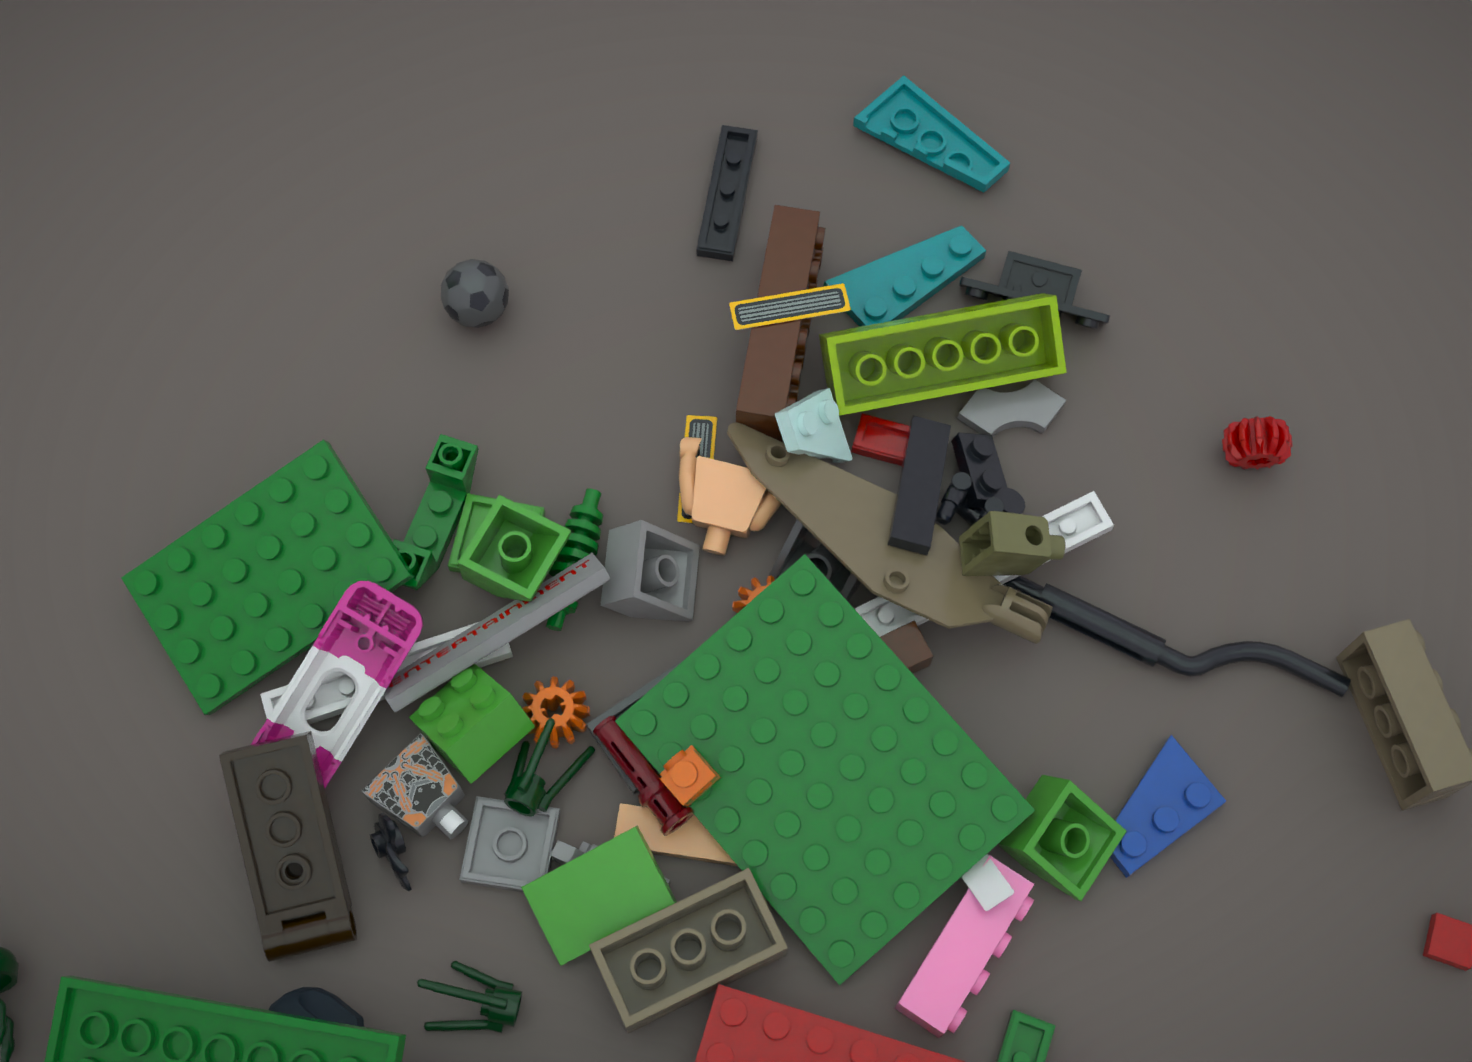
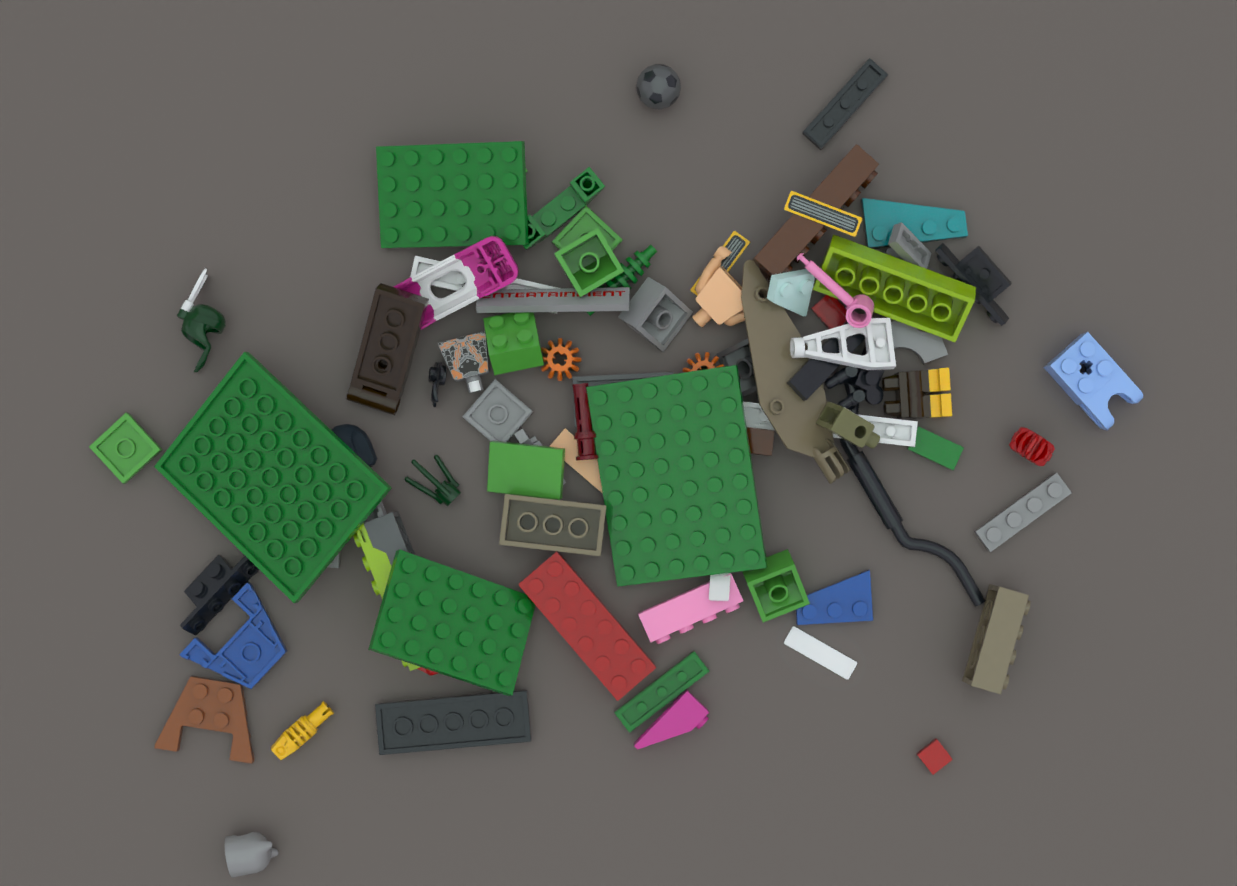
camera: 35 degrees right, 20 degrees up
(527, 789) = (521, 394): dark green plant -> none
(688, 775) = (604, 442): orange brick -> none
(901, 395) = (858, 301): none -> bright pink piece
(920, 297) = (907, 247): none -> light grey tile
(927, 131) = (987, 138): teal wing -> none
(965, 422) = (878, 346): none -> white plate
(1067, 465) = (910, 396): none -> dark brown hips
(1141, 525) = (936, 448): none -> green tile
(1188, 897) = (820, 652): none -> white sticker
(1266, 322) = (1096, 385): none -> light blue brick
(1306, 538) = (1022, 512): none -> light grey plate

